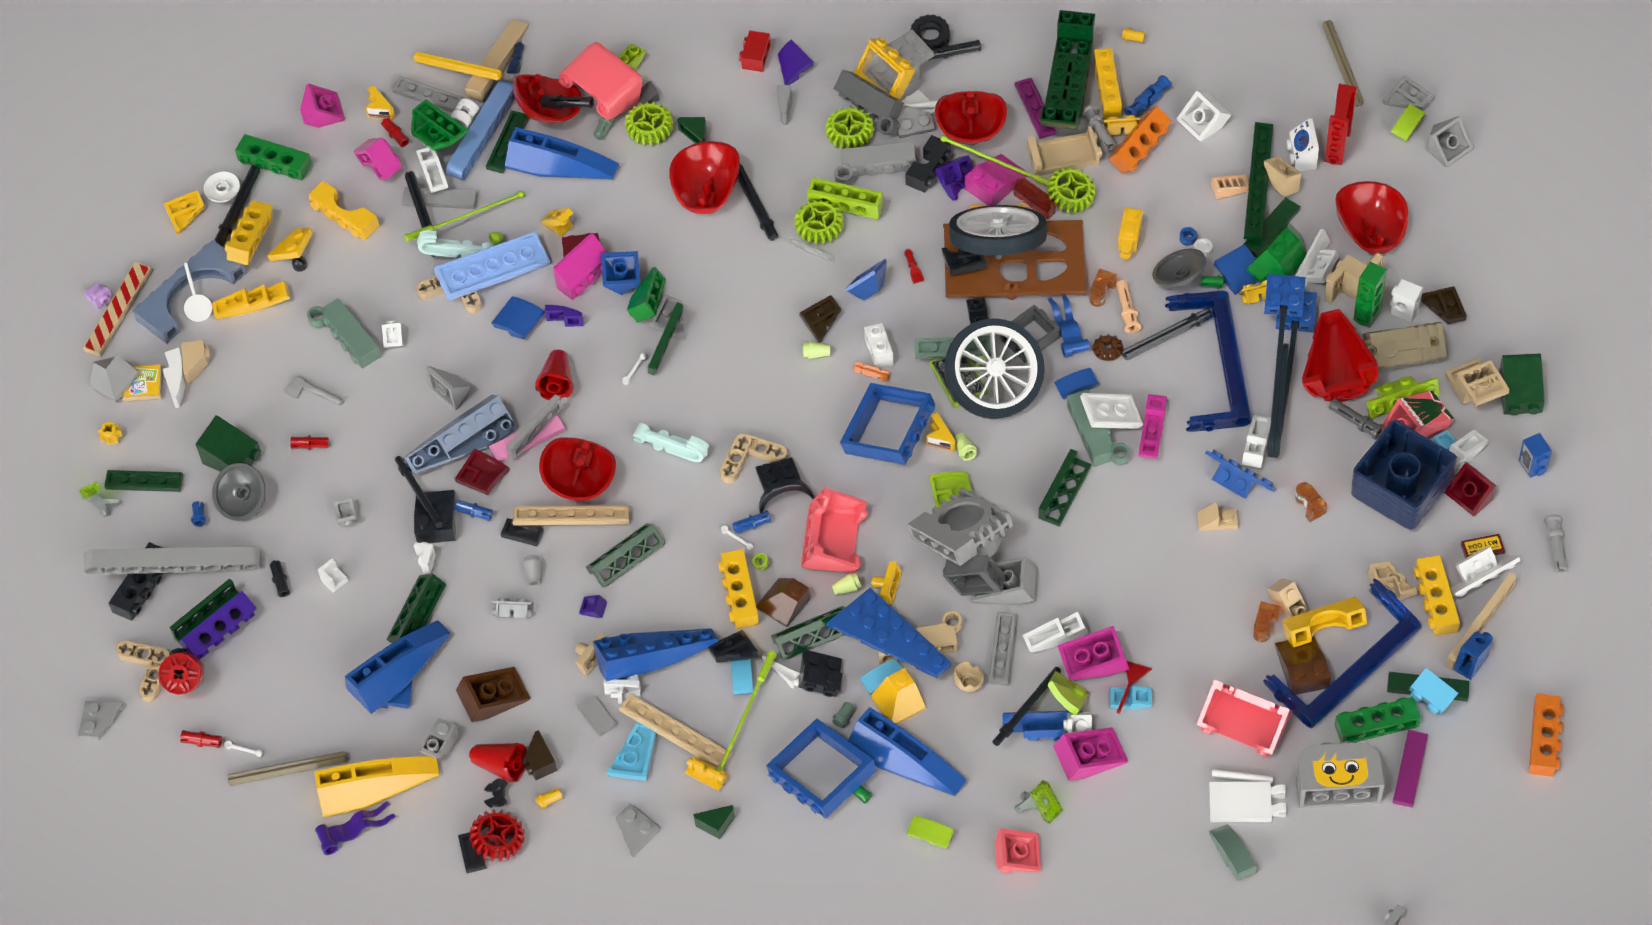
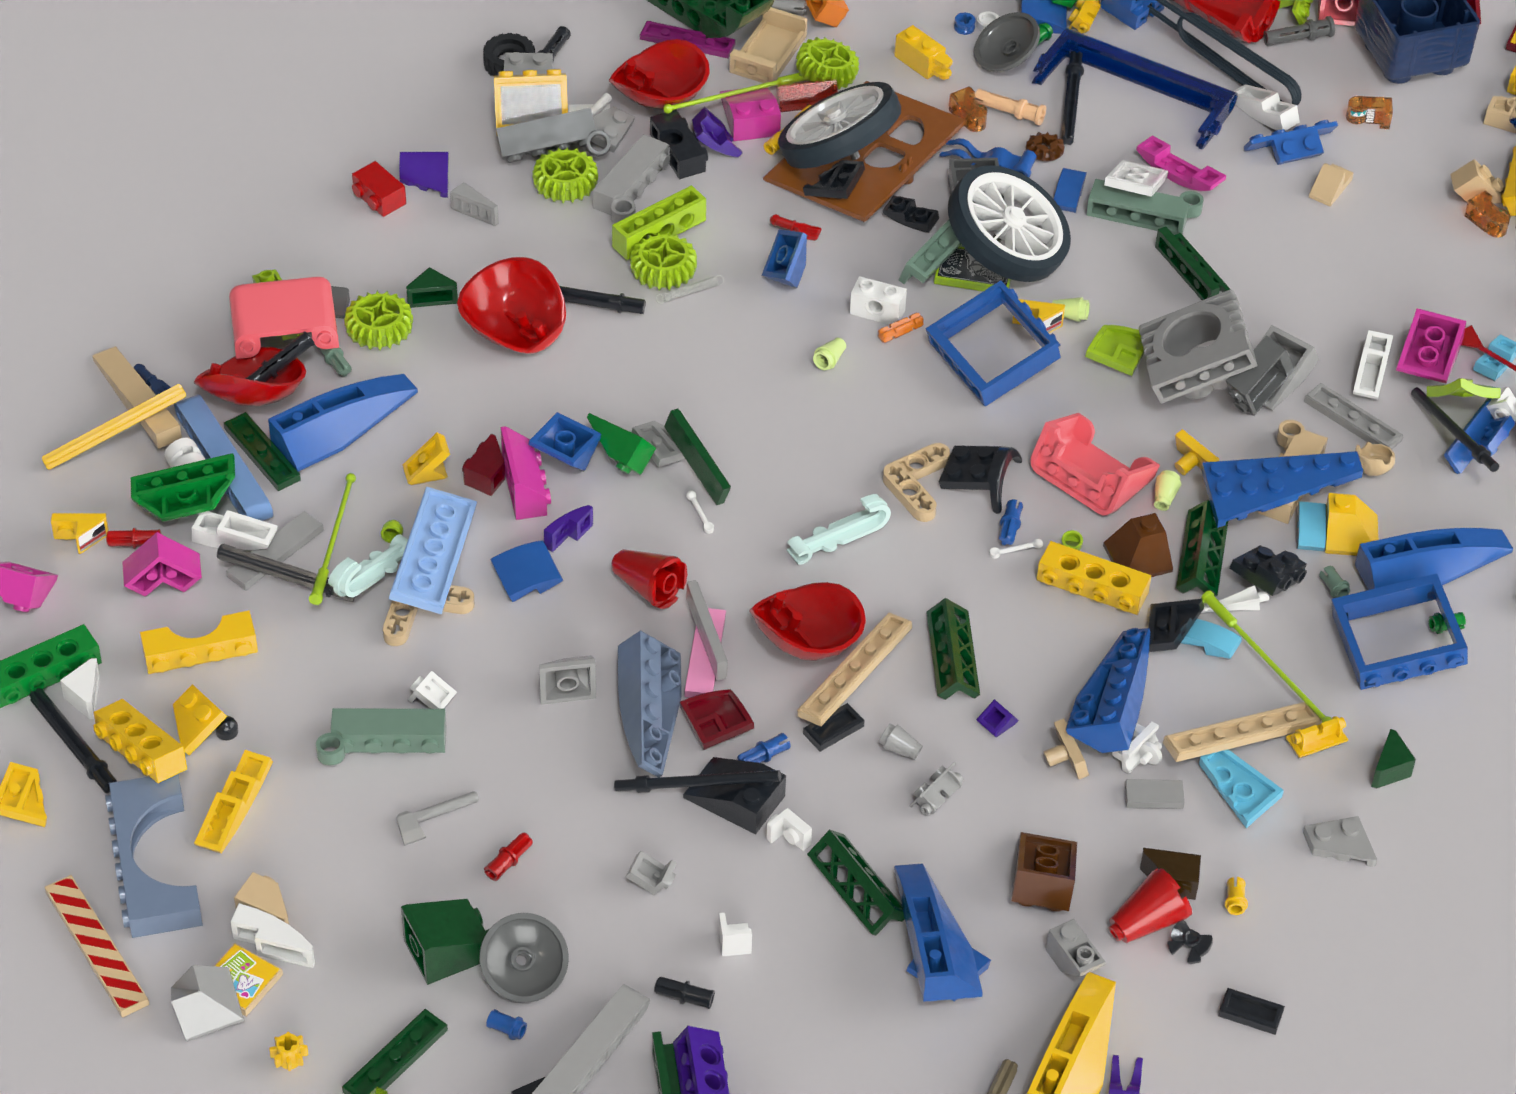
camera: 60 degrees left, 10 degrees down
(98, 295) = (54, 953): lavender bracket -> none
(196, 307) = (183, 858): white piece -> none
(221, 181) = (30, 738): white dish -> none
(273, 184) = (82, 686): none -> white slope
(420, 92) = (107, 484): light grey tile -> none
(493, 843) = (1256, 968): red gear -> none
(821, 317) = (791, 327): dark brown wing -> none

